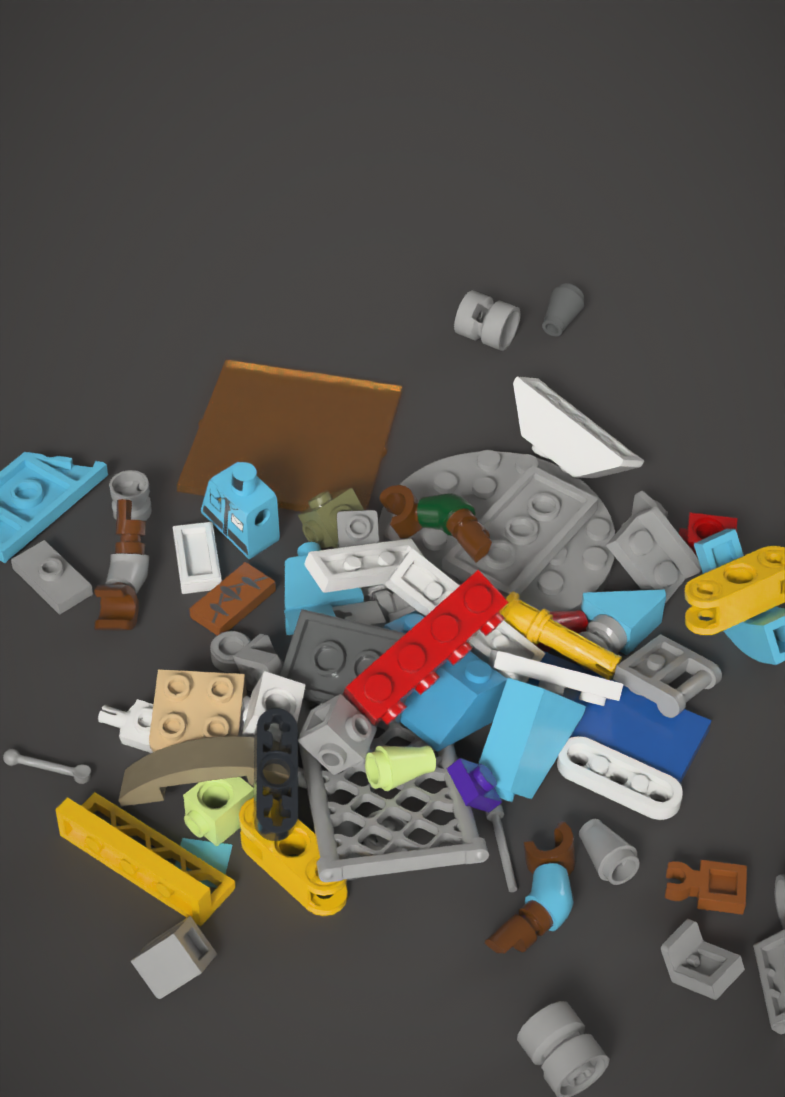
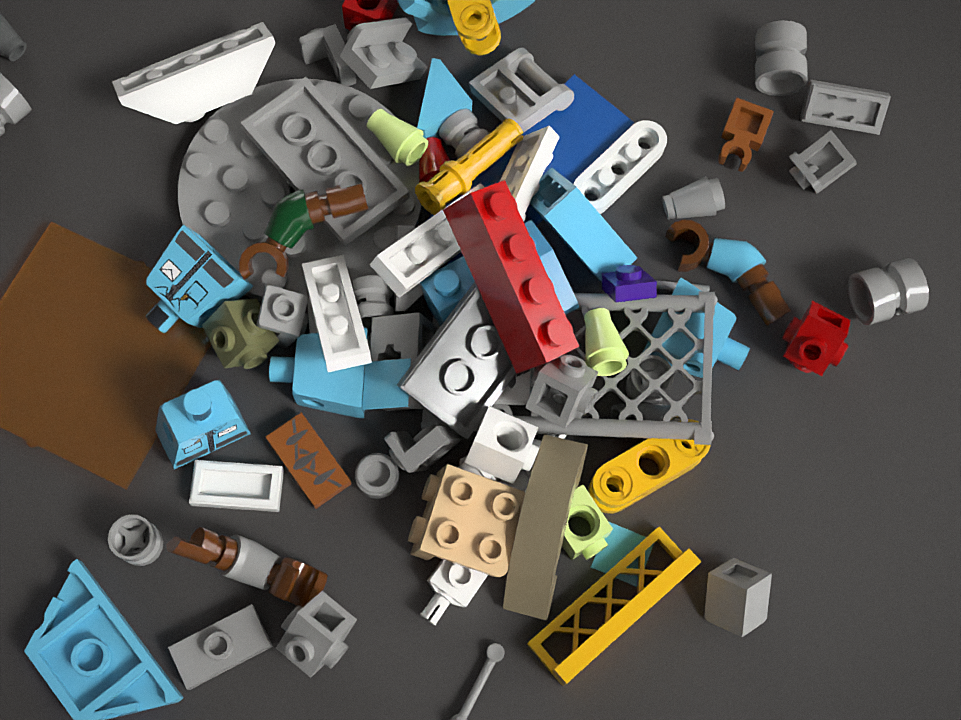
camera: 80 degrees left, 25 degrees up
(70, 625) = (316, 634): none -> light grey brick
(262, 804) = (611, 450): black beam -> none
(370, 468) = (192, 281): none -> medium azure torso
(456, 887) = (678, 345): none -> medium azure torso
(479, 980) = (816, 339): none -> red brick
(566, 584) = (399, 138): none -> yellowish green cone

